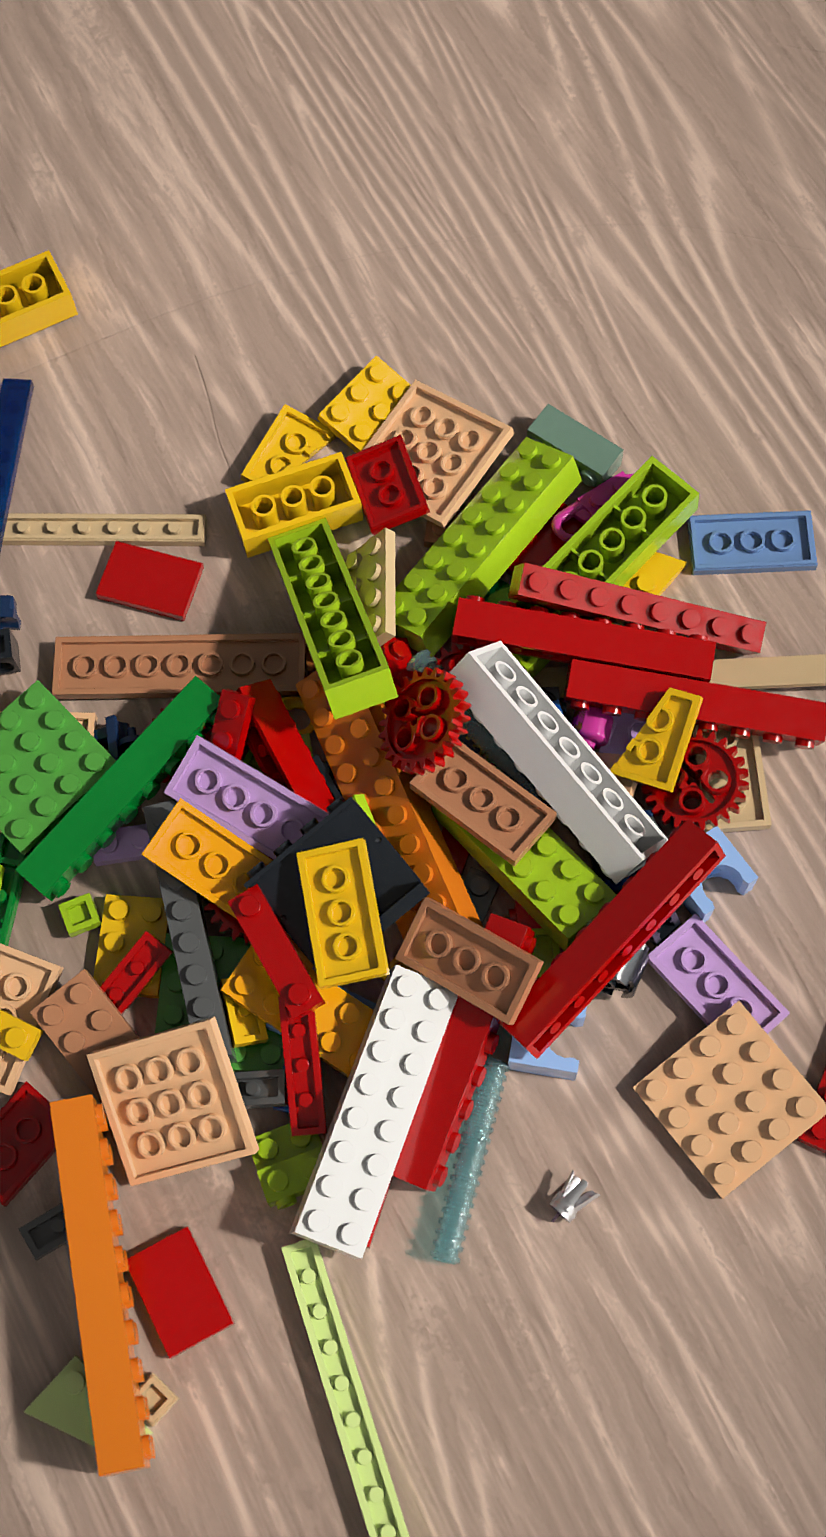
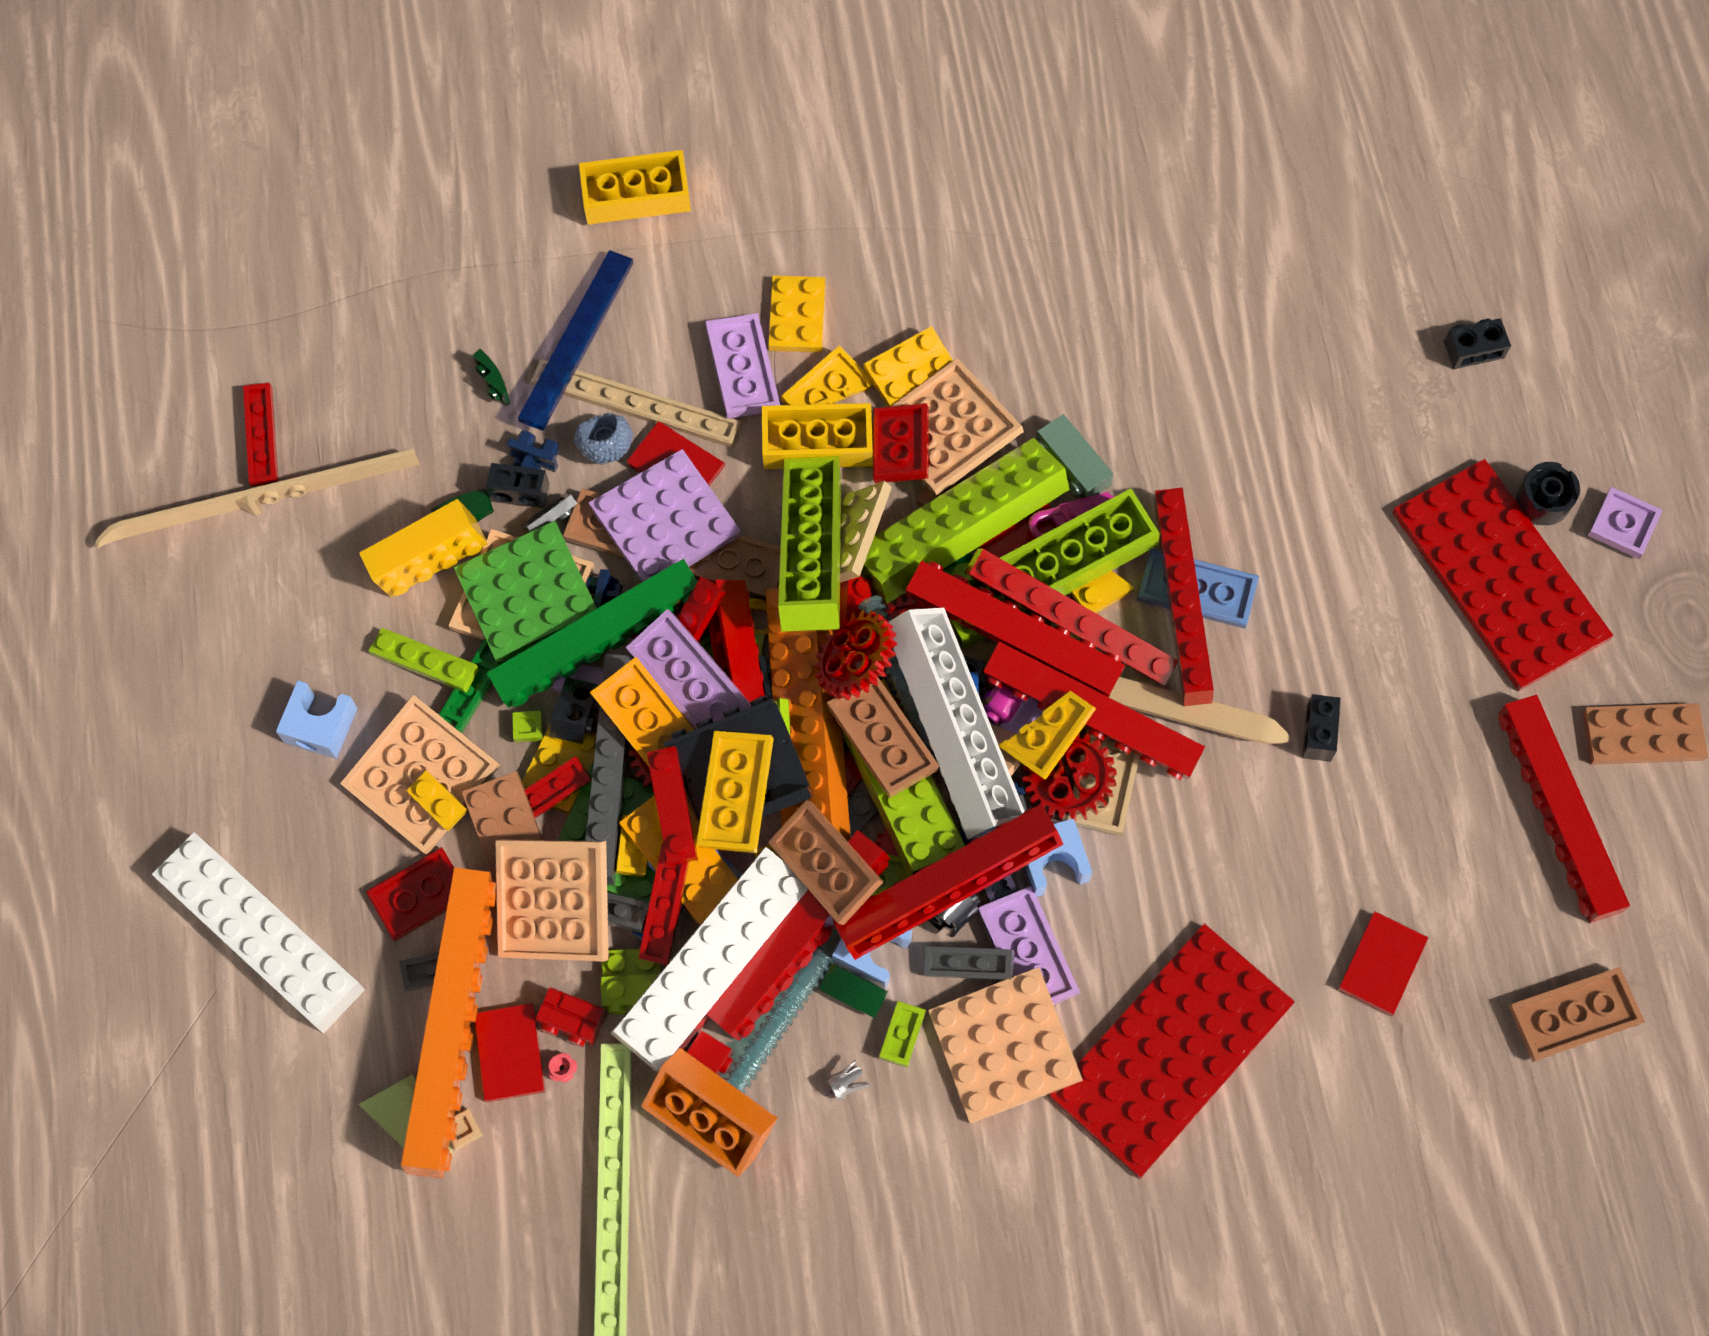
camera: 15 degrees right, 0 degrees up
(36, 667) = (557, 509): none -> plate
(63, 575) = (604, 438): none -> sand blue hair
(128, 881) = (574, 711): none -> black brick
(157, 640) = (665, 517): none -> lavender plate
(187, 455) = (741, 365): none -> lavender plate
(227, 386) = (797, 314): none -> yellow plate
(235, 1289) = (555, 1063): none -> coral plate
(236, 1228) = (570, 1017): none -> red brick
(409, 1219) = (711, 1053): none -> red brick
(431, 1287) = (709, 1112): none -> orange brick
(542, 1092) = (853, 990): none -> dark green slope
(613, 1124) = (902, 1034): none -> lime plate
(659, 1020) = (969, 963): none -> dark grey plate
(746, 557) = (1183, 597): none -> red brick

